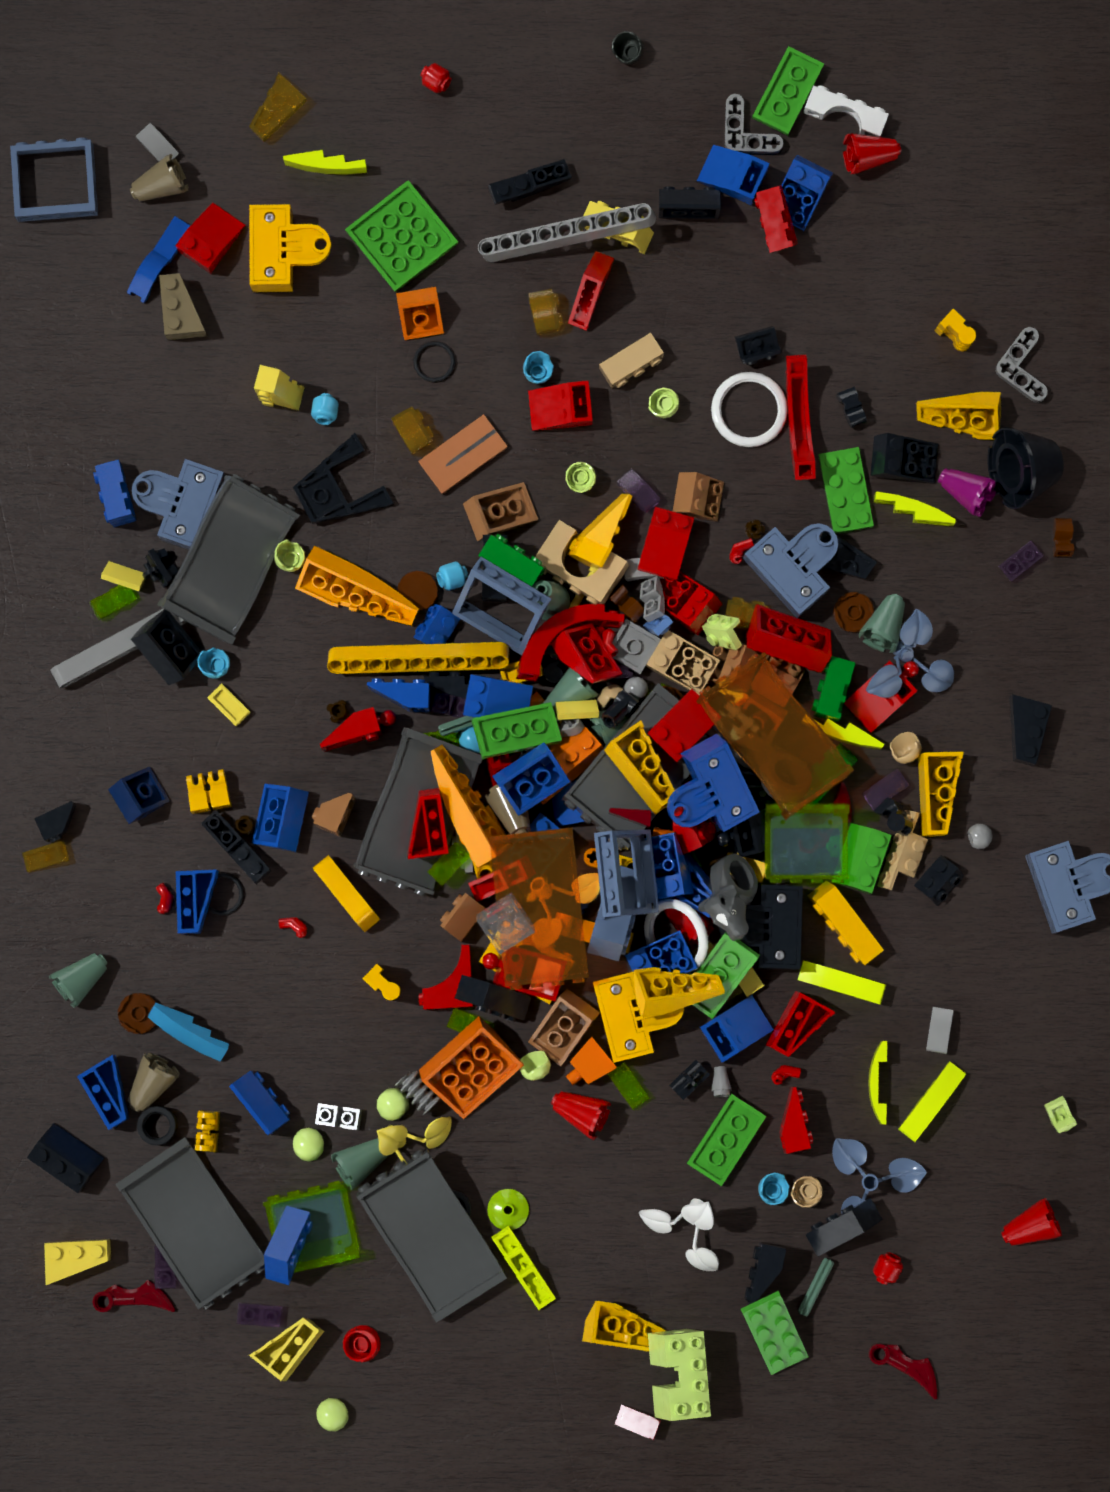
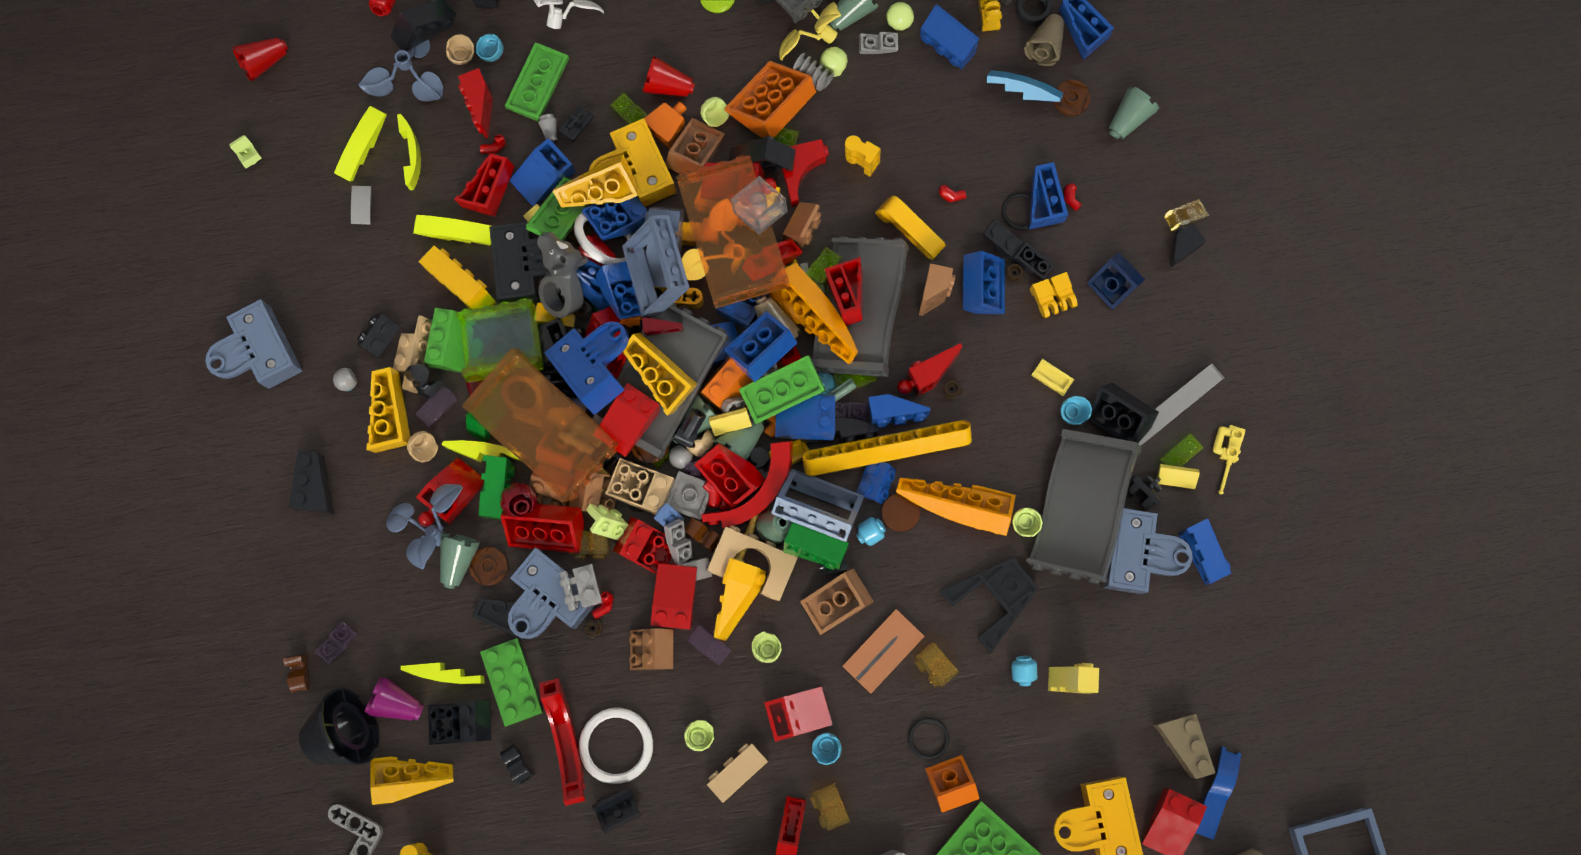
camera: 170 degrees right, 5 degrees down
(60, 593) = (1232, 450): none -> light yellow piece
(752, 563) = (586, 584): none -> light grey plate
(808, 670) = (520, 497): none -> dark red plant

